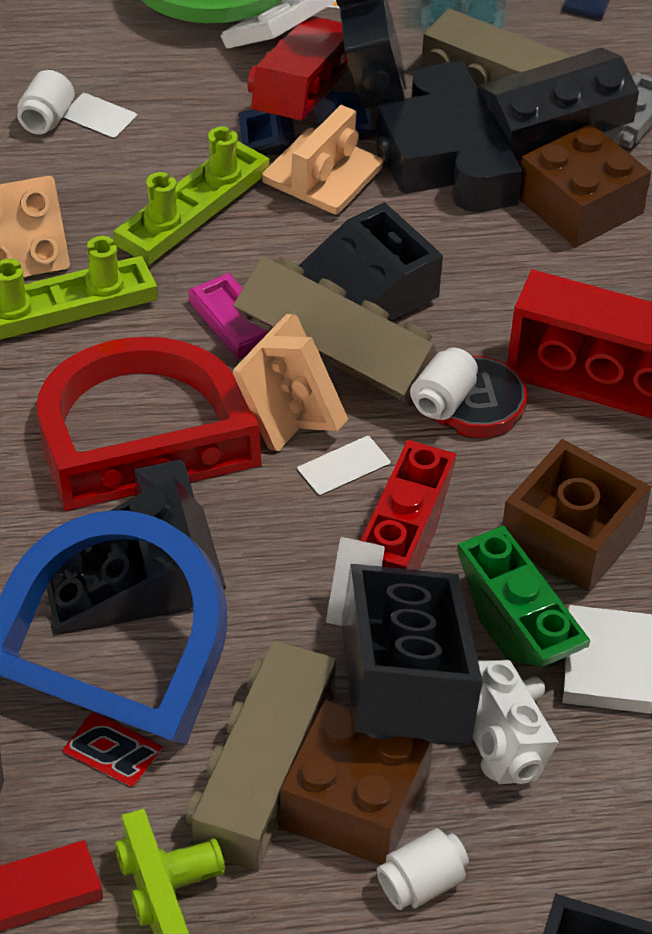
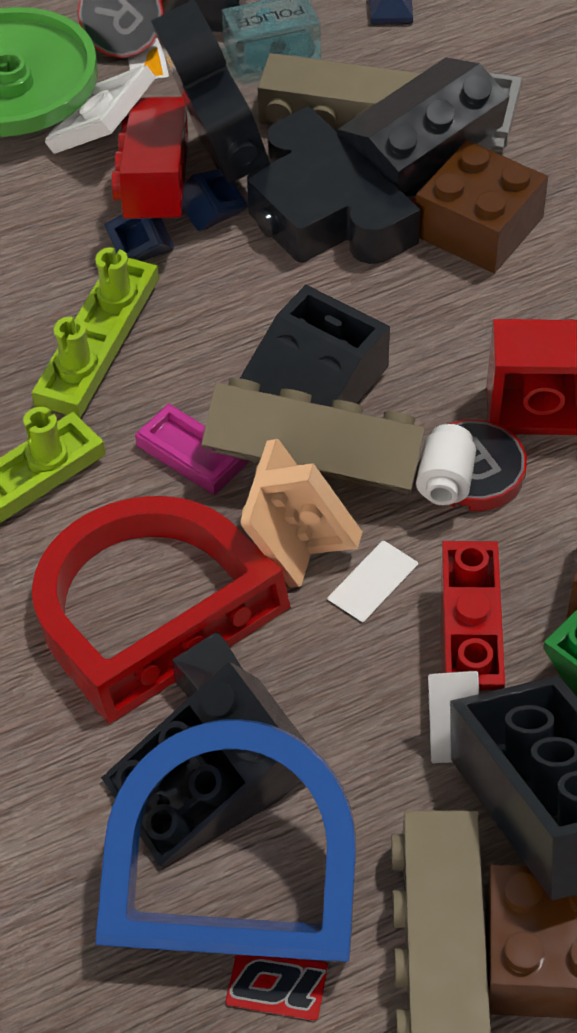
camera: 15 degrees left, 5 degrees up
(325, 164) = (214, 256): light nougat bracket -> none

